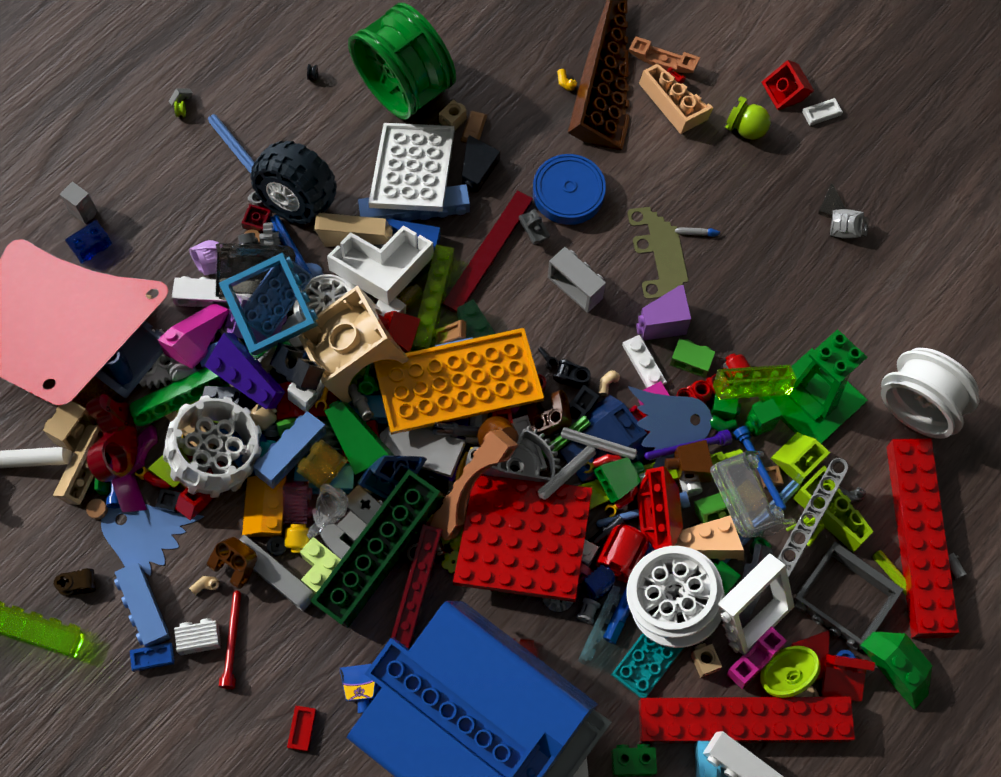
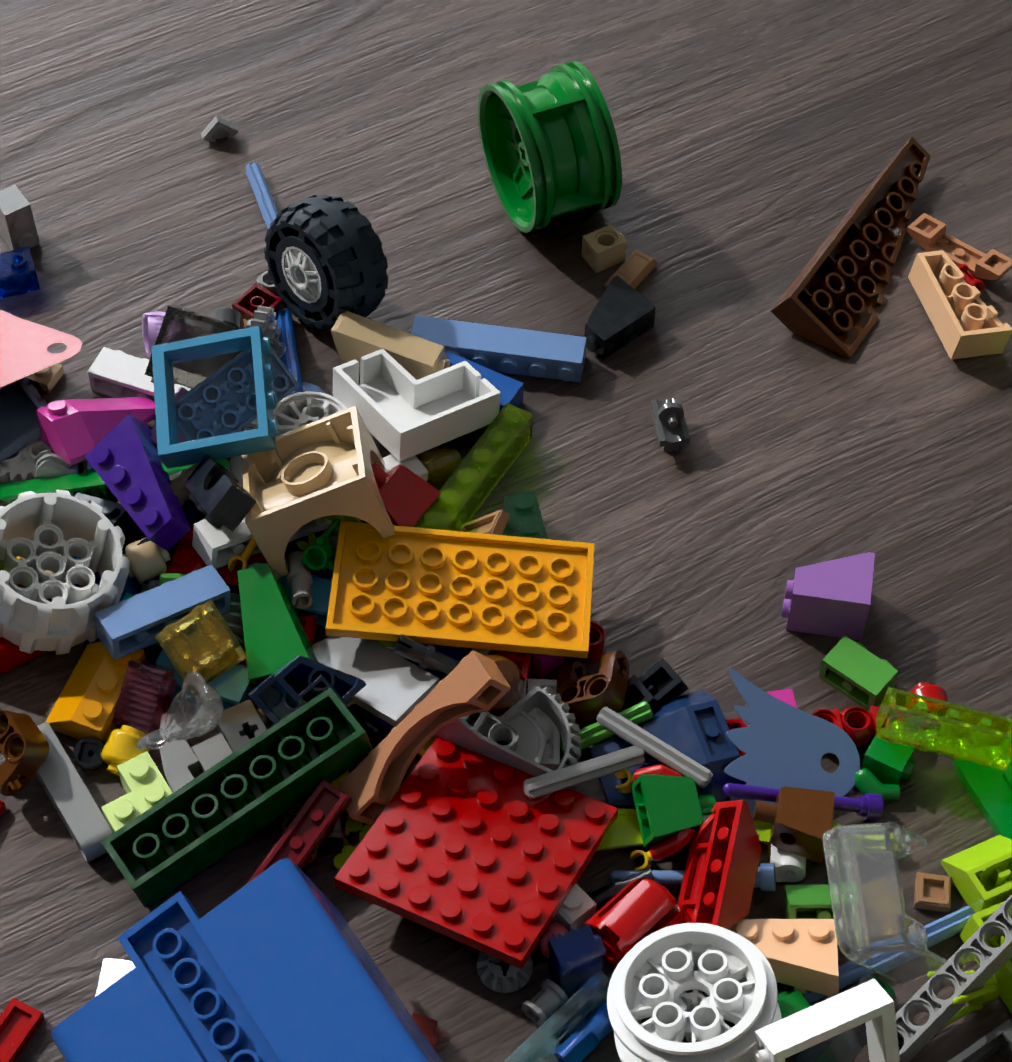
camera: 20 degrees right, 15 degrees down
(180, 109) = (211, 145): lime bush -> none
(312, 72) = (420, 145): black bush -> none
(412, 167) = (513, 295): white plate -> none
(487, 251) = (587, 438): dark red tile -> none
(548, 358) = (623, 612): black hand -> none
(564, 82) = (792, 248): yellow arm -> none
(569, 189) = (744, 386): blue brick -> none
(569, 373) = (650, 641): black piece -> none
(576, 279) = (708, 508): light grey piece -> none
(608, 378) = (703, 669): tan arm -> none
(643, 361) = (776, 656): white plate -> none
(666, 249) = (872, 507): olive piece -> none
(697, 231) = (950, 505): light grey piece -> none
(743, 435) = (905, 812): blue piece -> none
(763, 417) = (945, 790): green brick -> none

